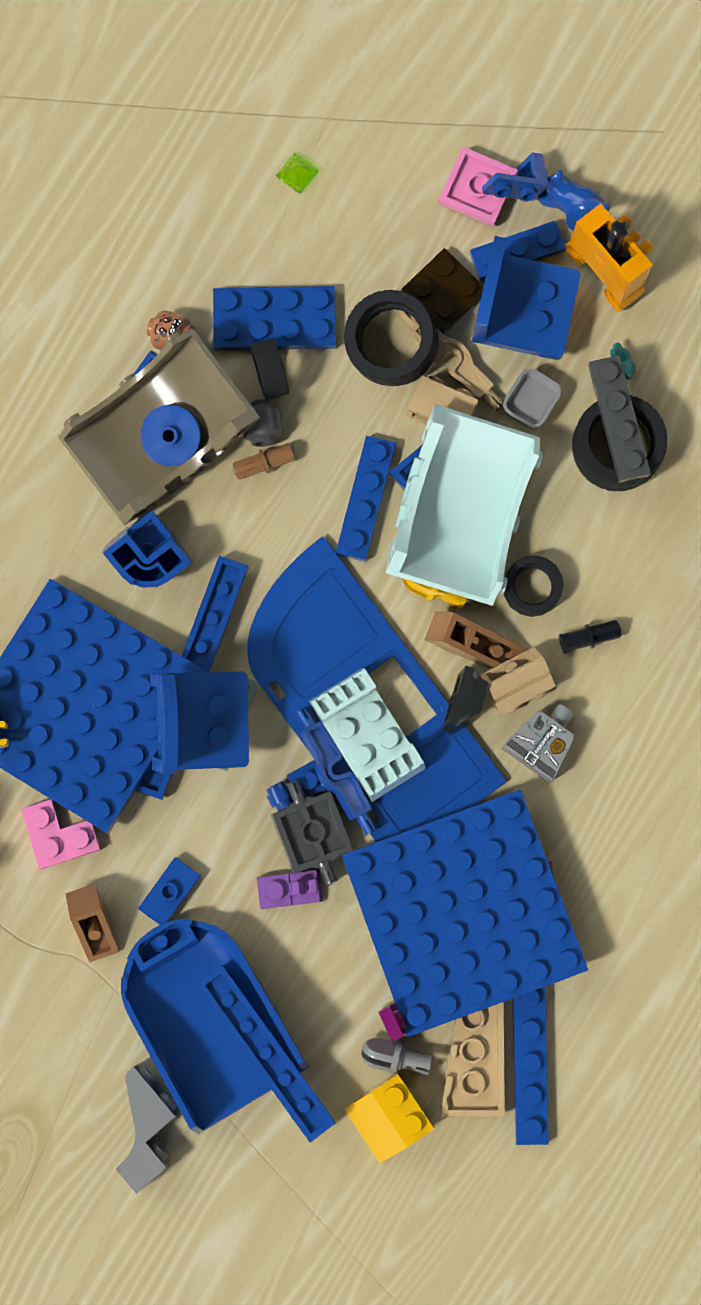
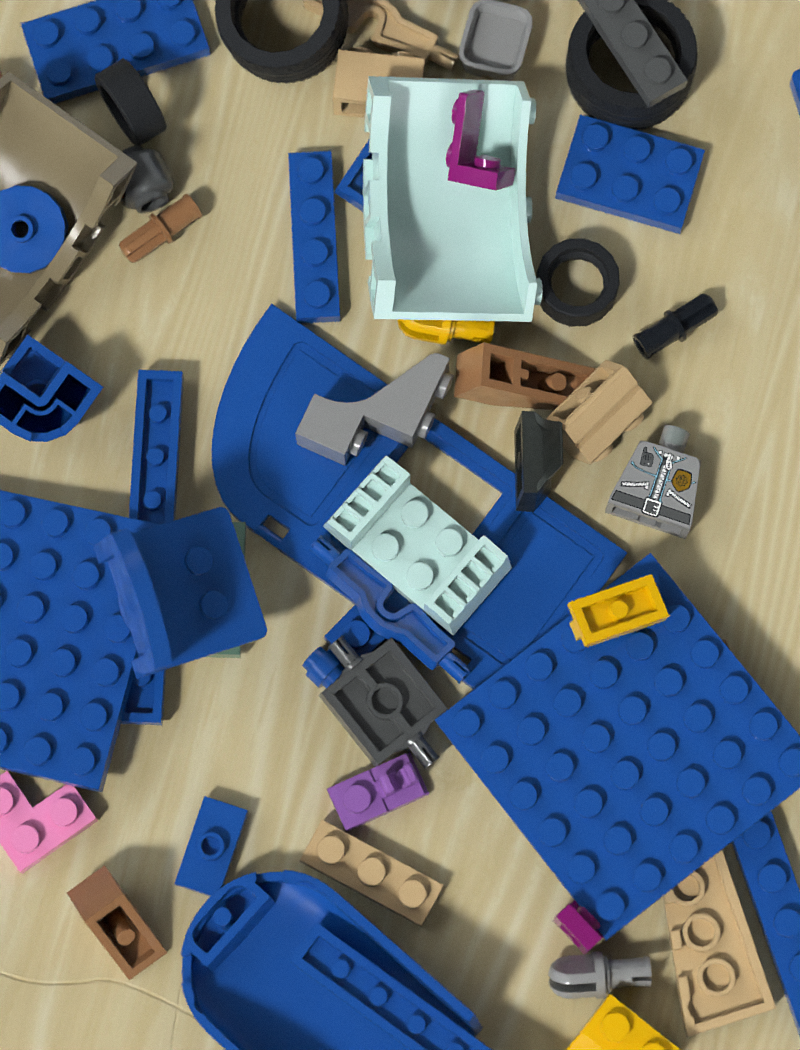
camera: 15 degrees left, 5 degrees down
(268, 942) = (371, 873): none -> tan plate
(381, 638) = (395, 412): none -> light grey arch
(481, 486) = (461, 155): none -> magenta bracket
(483, 824) = (617, 611): none -> yellow plate
(593, 520) = (629, 174): none -> blue plate

